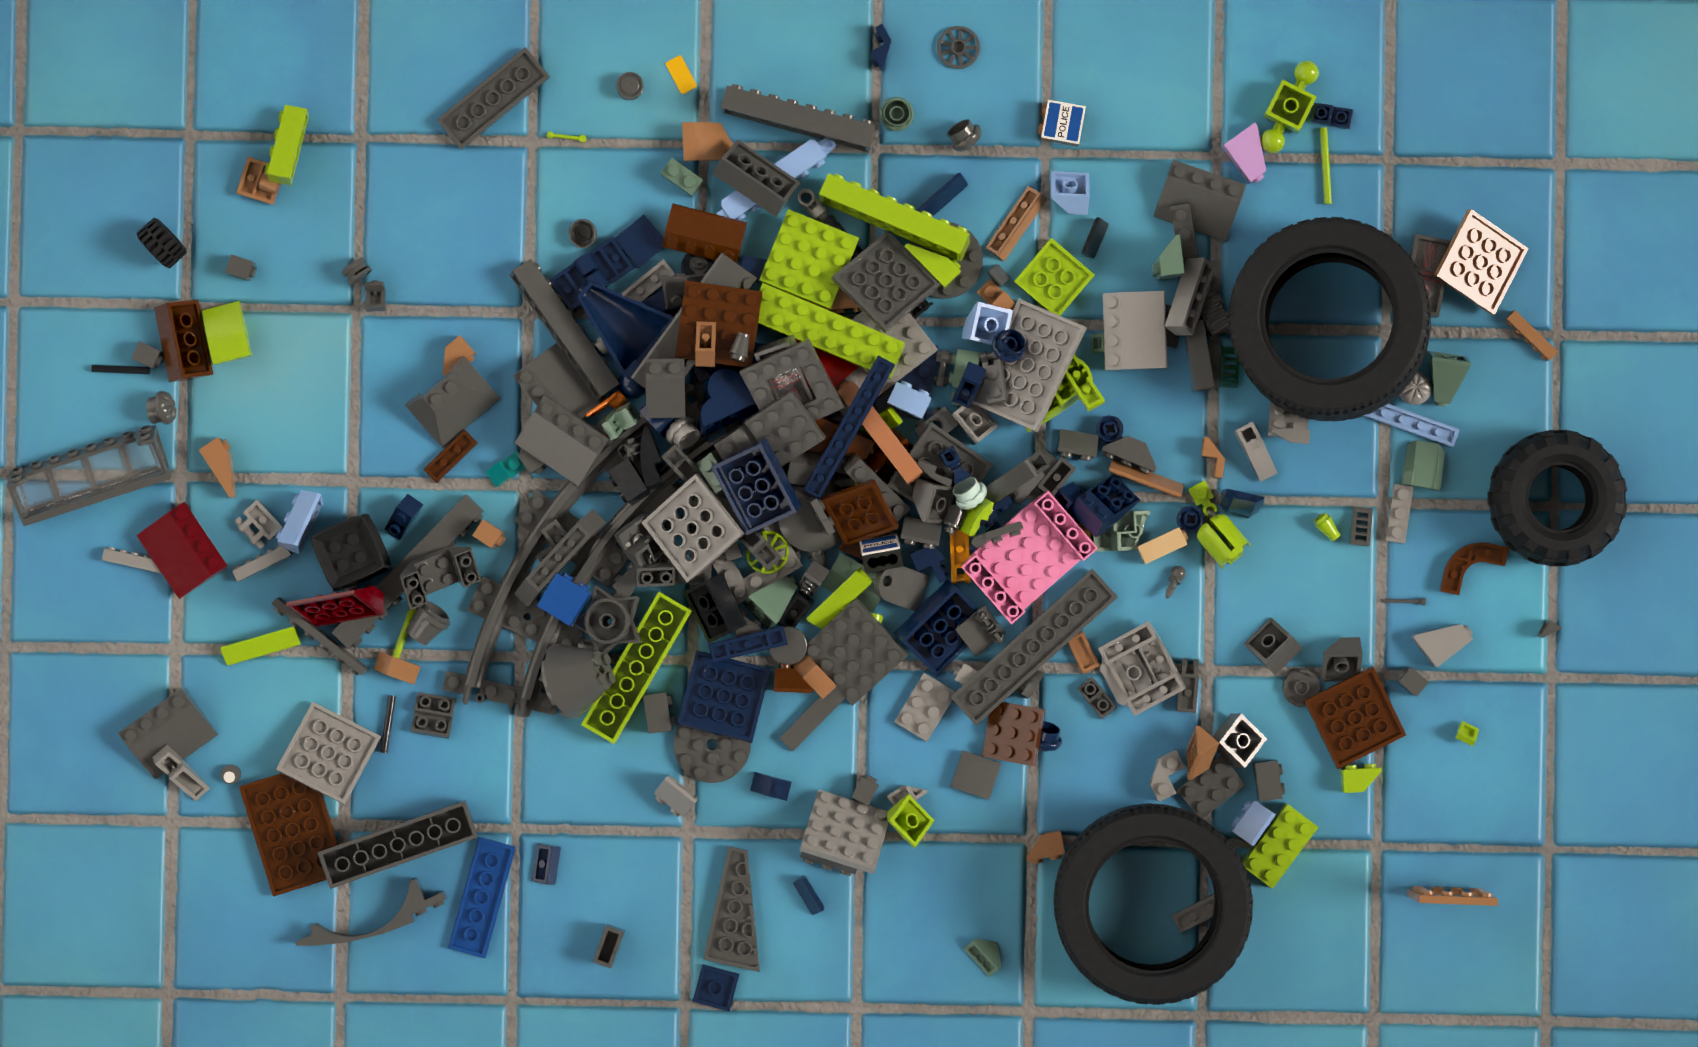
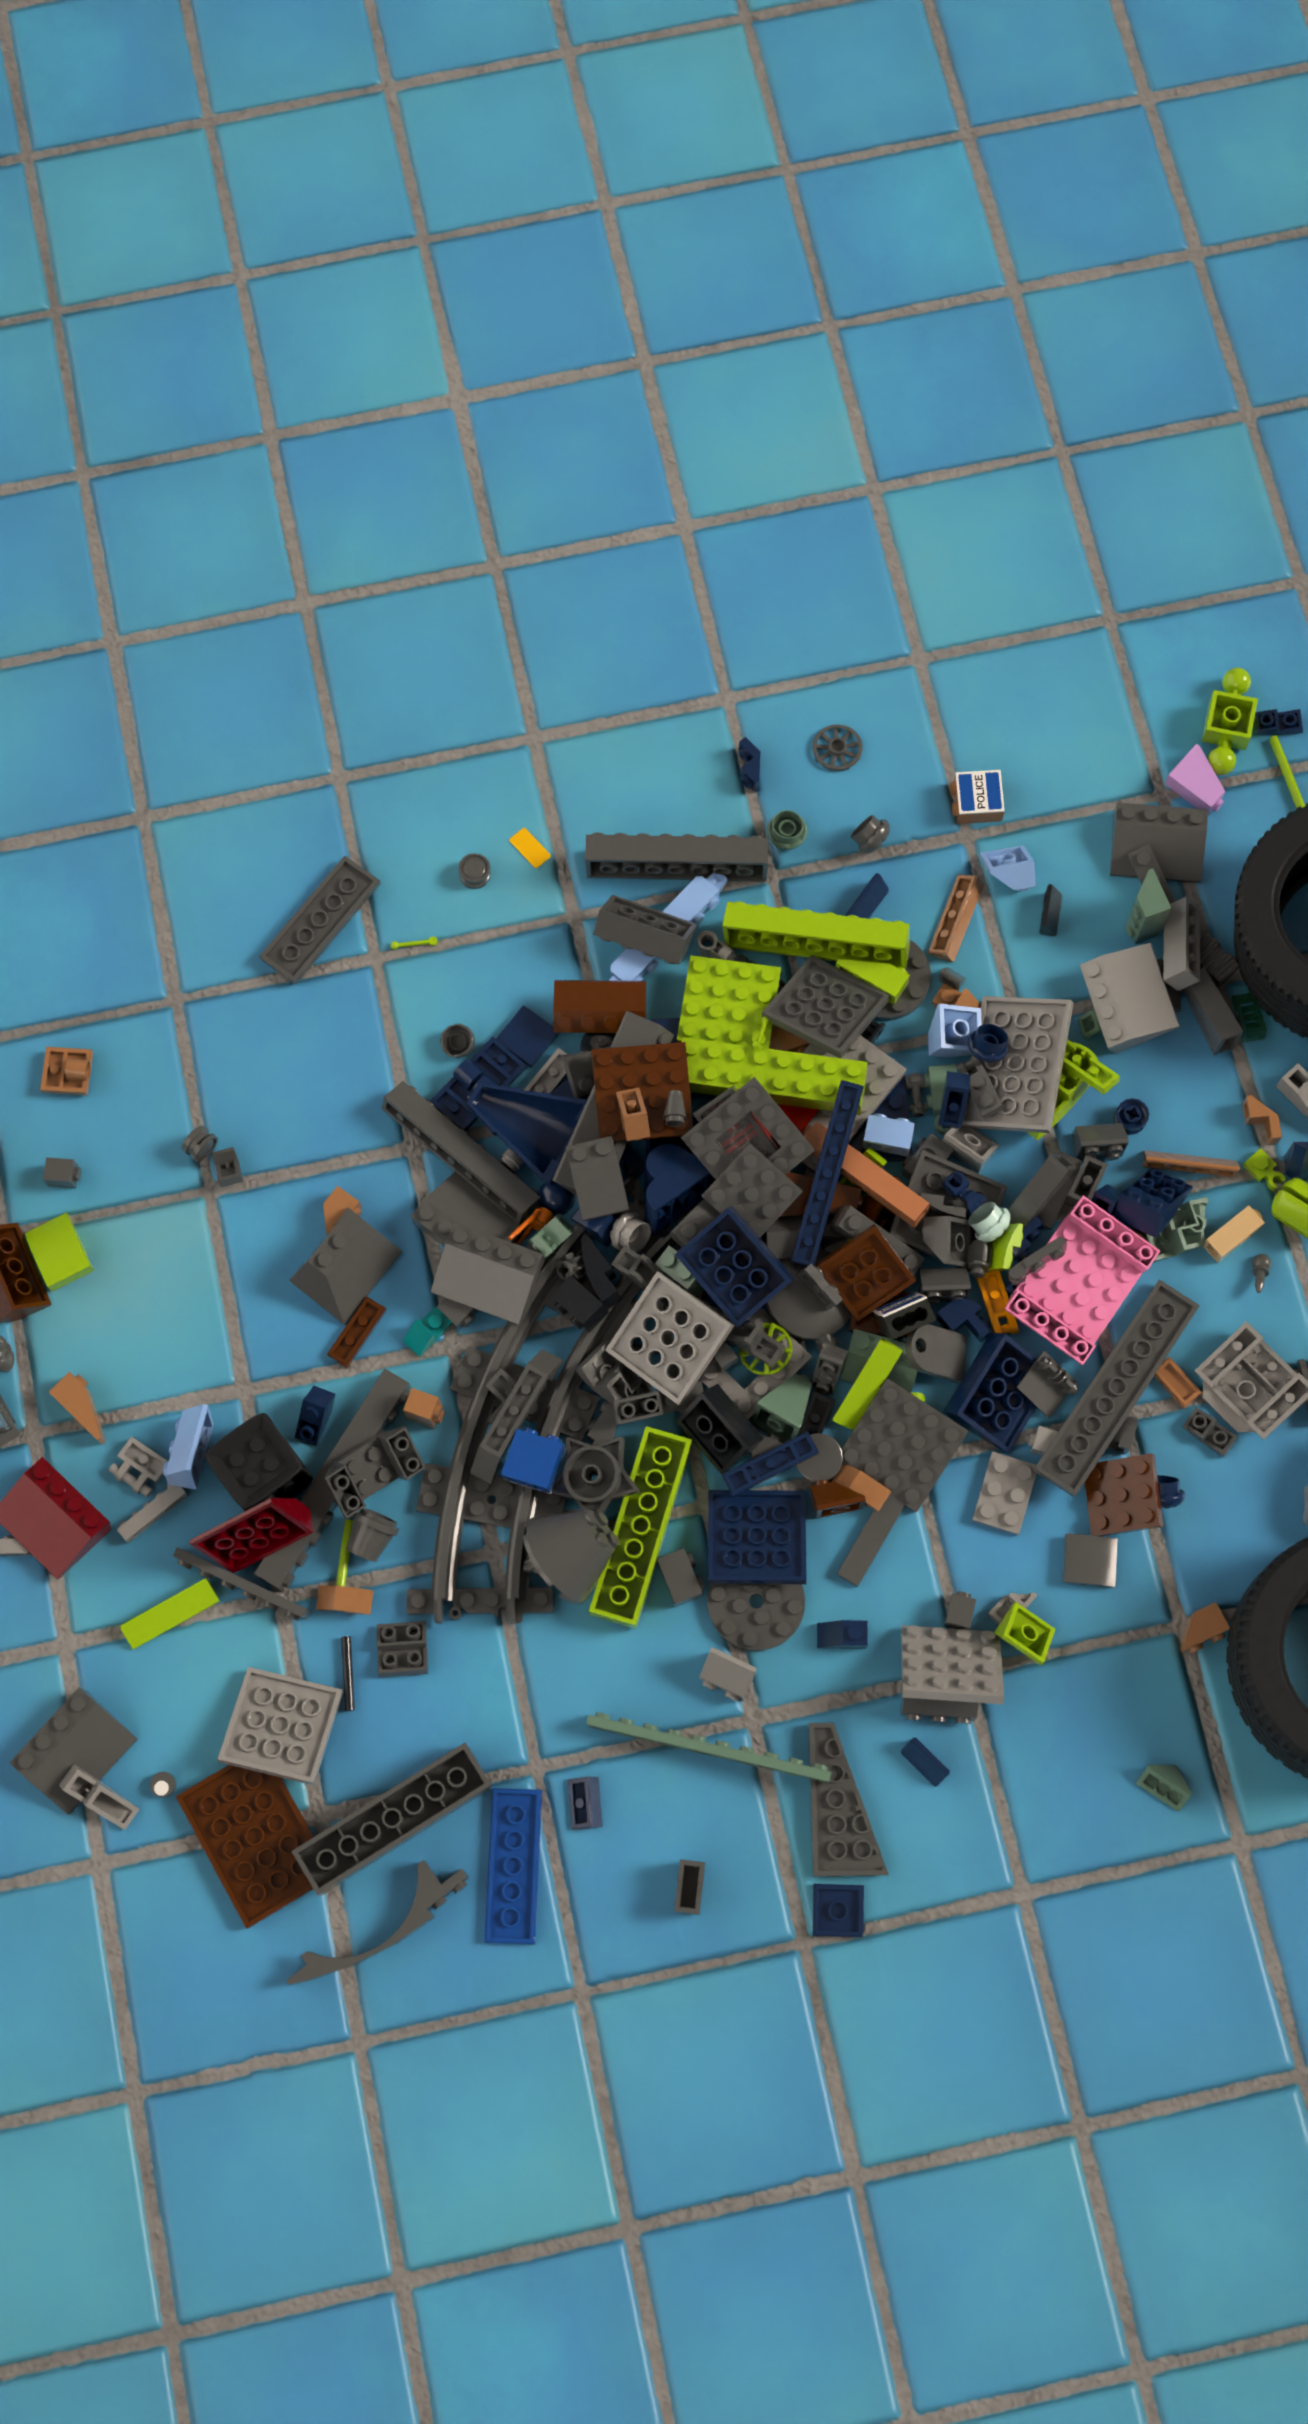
camera: 10 degrees left, 15 degrees down
(287, 145) = (90, 1020): lime brick -> none
(641, 843) = (719, 1749): none -> sand green plate
(682, 177) = (558, 953): sand green brick -> none
(704, 141) = (573, 908): medium nougat slope -> none
(820, 306) = (757, 1045): none -> lime hinge
(1054, 278) = (1017, 963): lime plate -> none
(1131, 452) = (1165, 1136): dark grey slope -> none
(1190, 519) = (1257, 1194): dark blue wheel -> none

